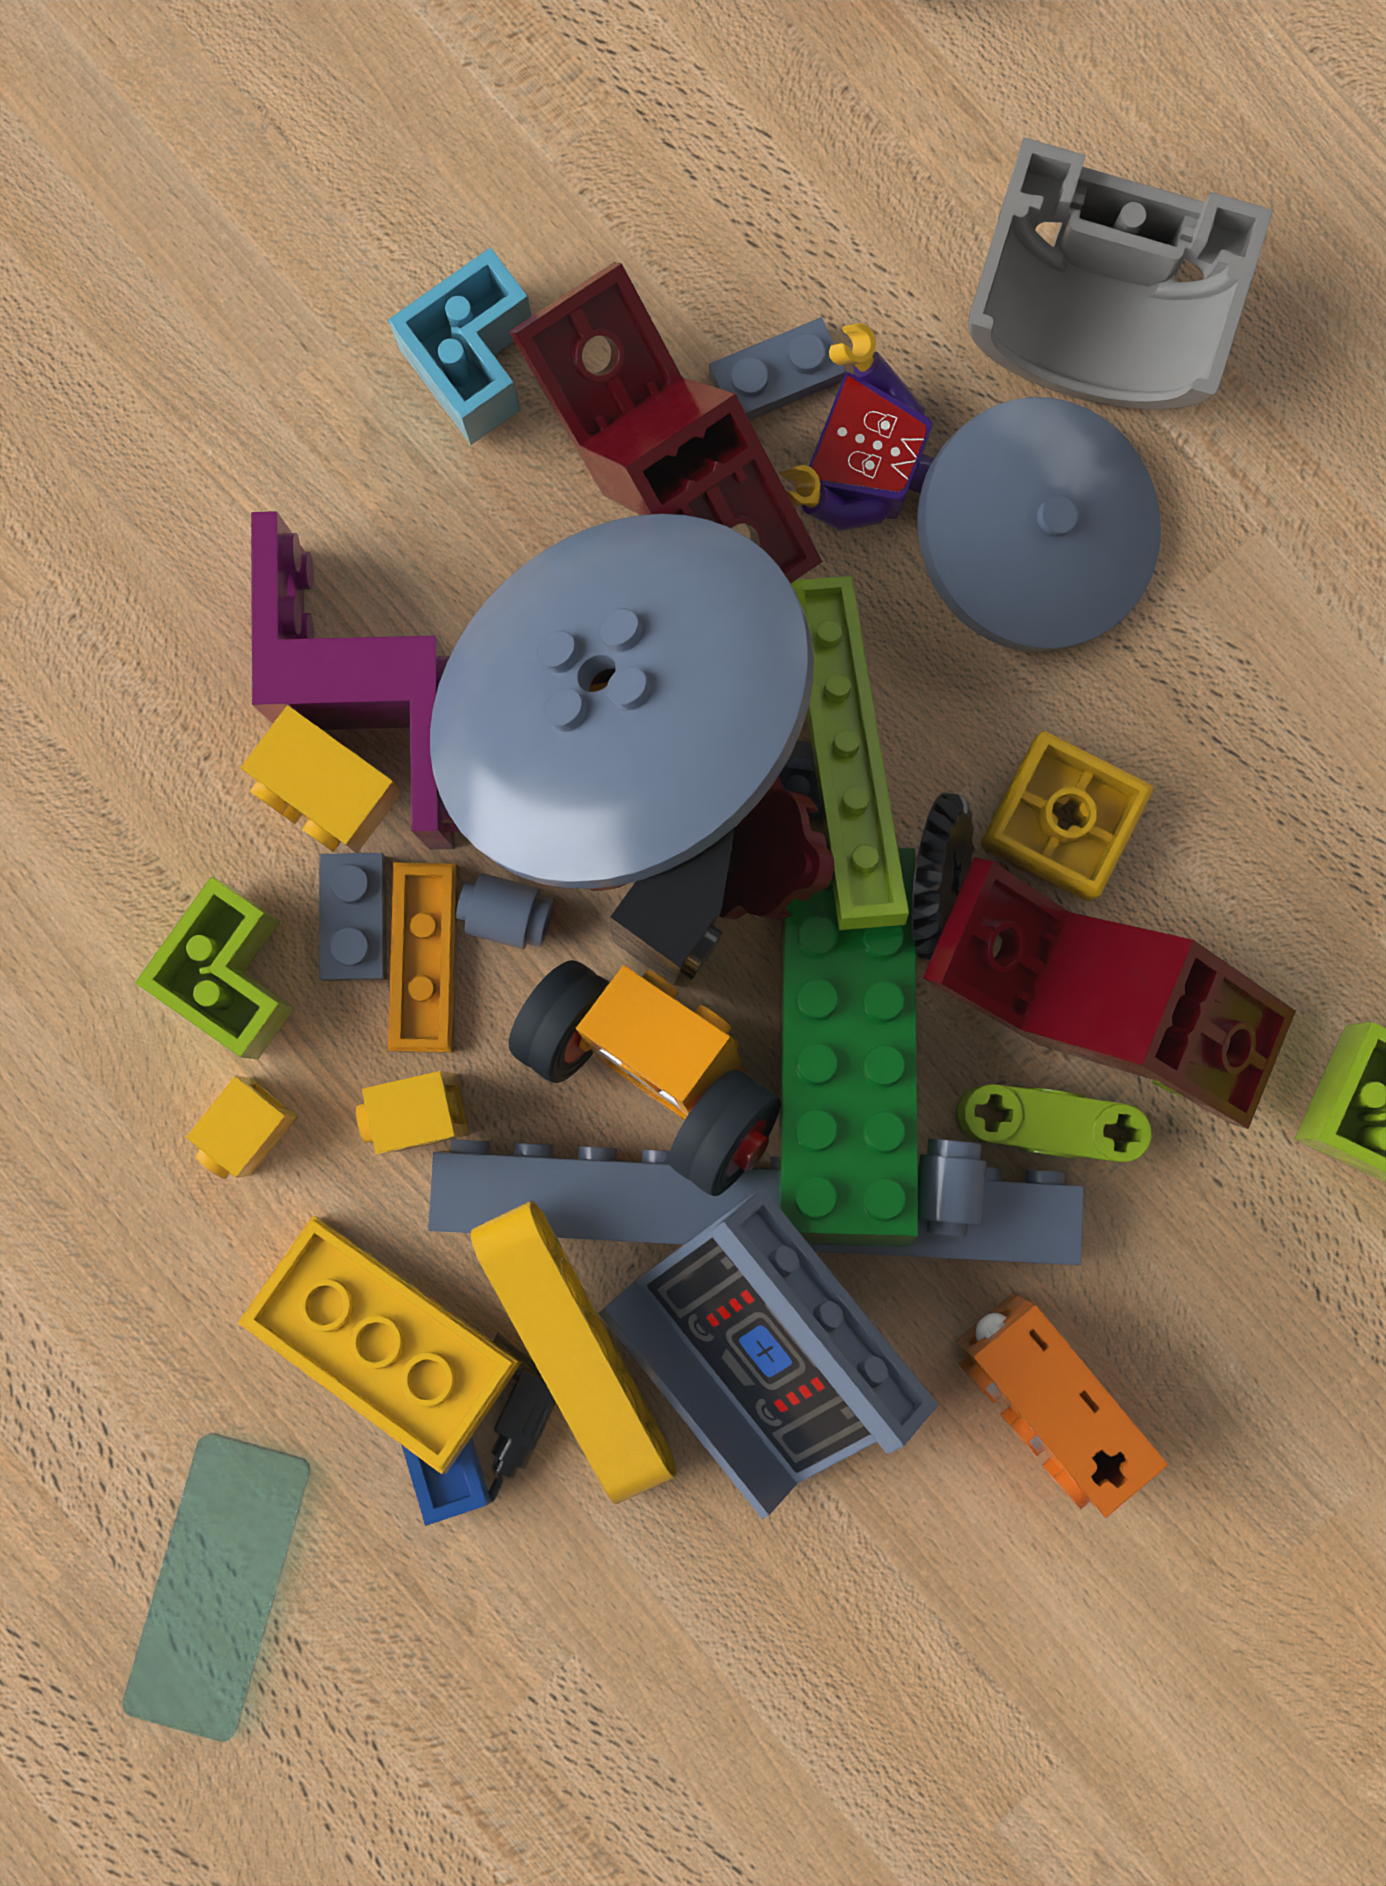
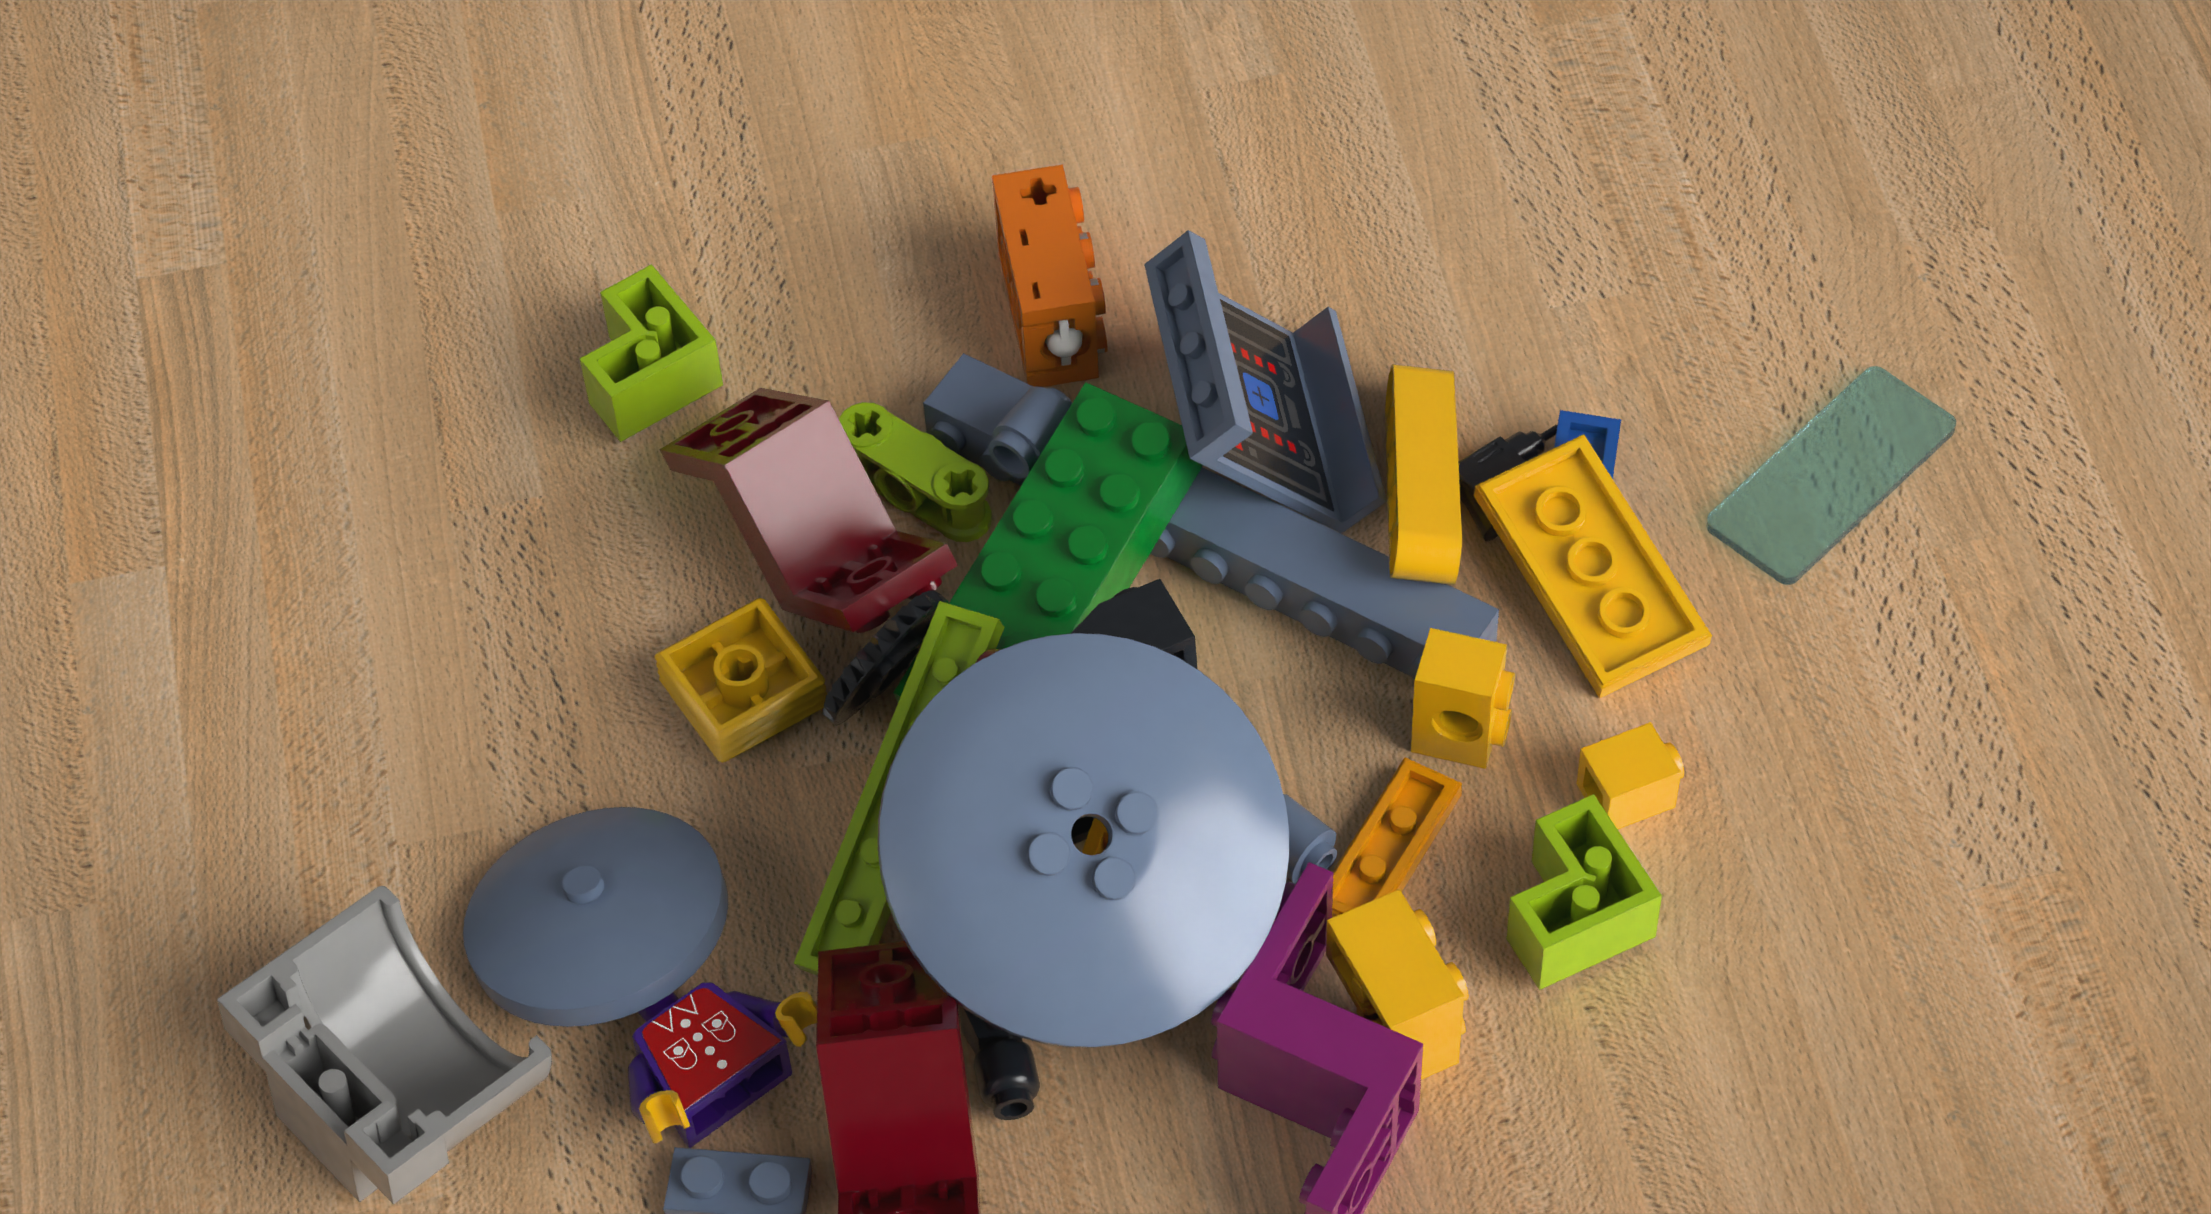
camera: 150 degrees left, 30 degrees down
(352, 917) = (1449, 892): sand blue plate -> none
(662, 1050) = (1193, 556): brick -> none

